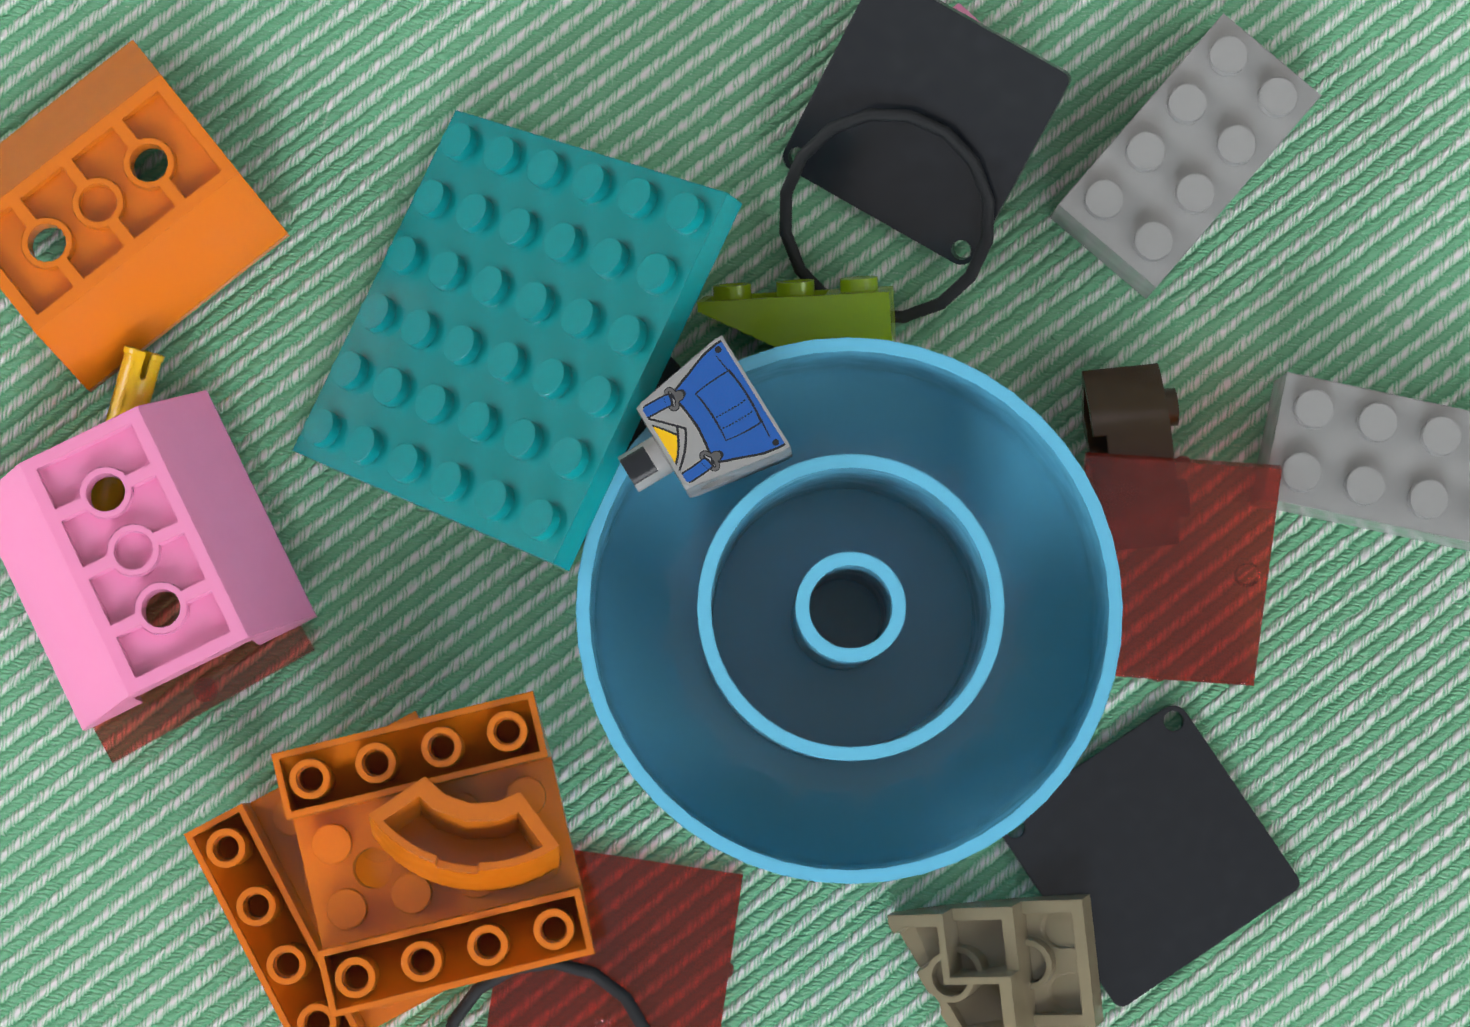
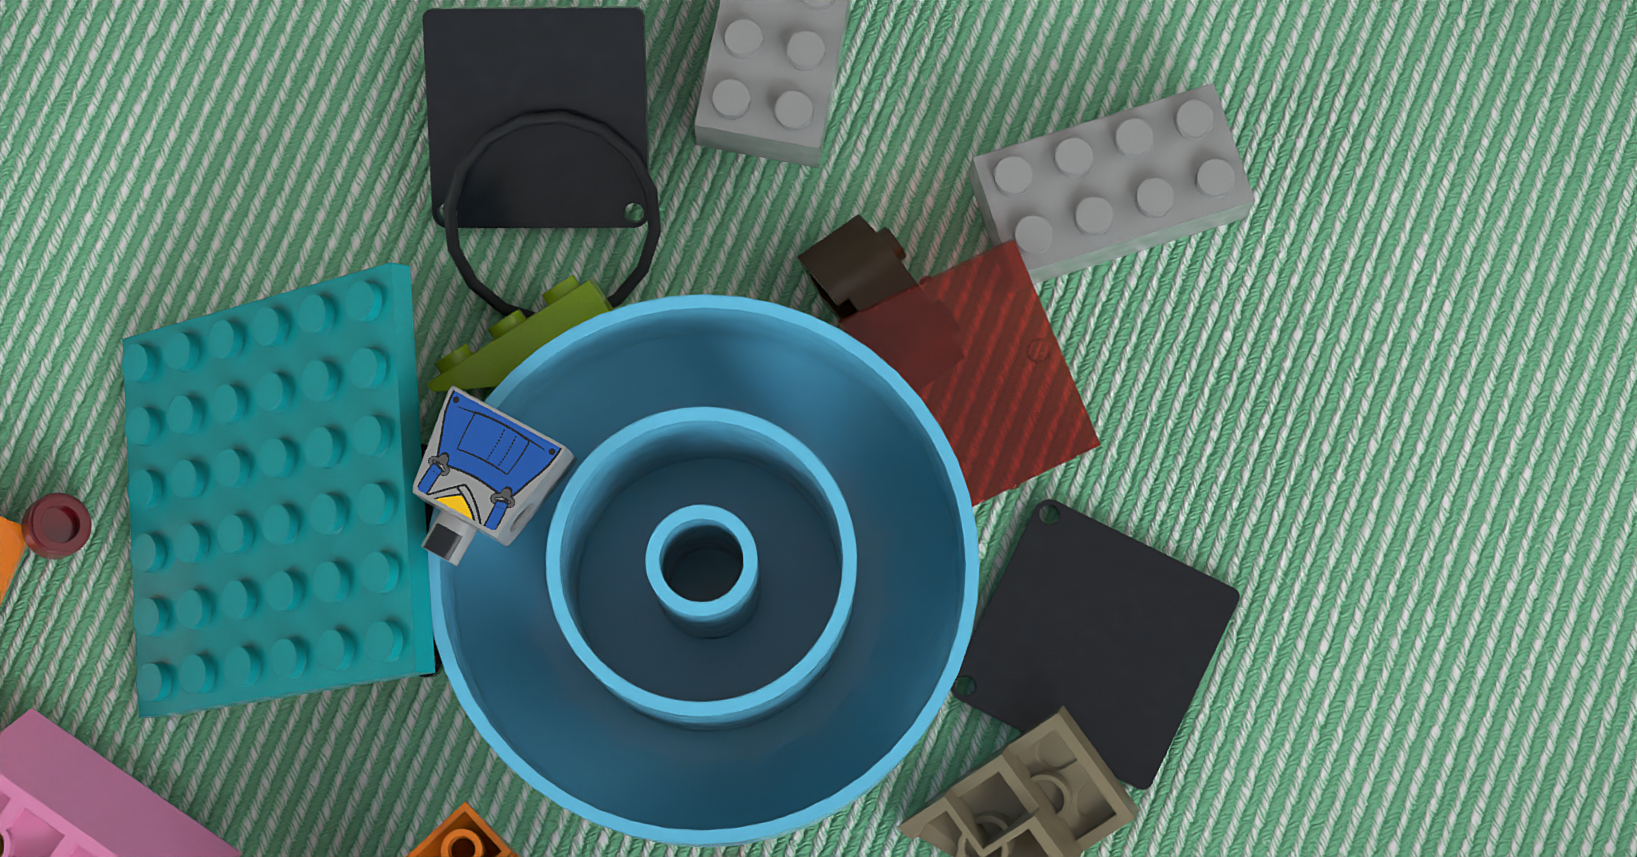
camera: 30 degrees left, 5 degrees down
(311, 243) = (56, 526): none -> dark red tile

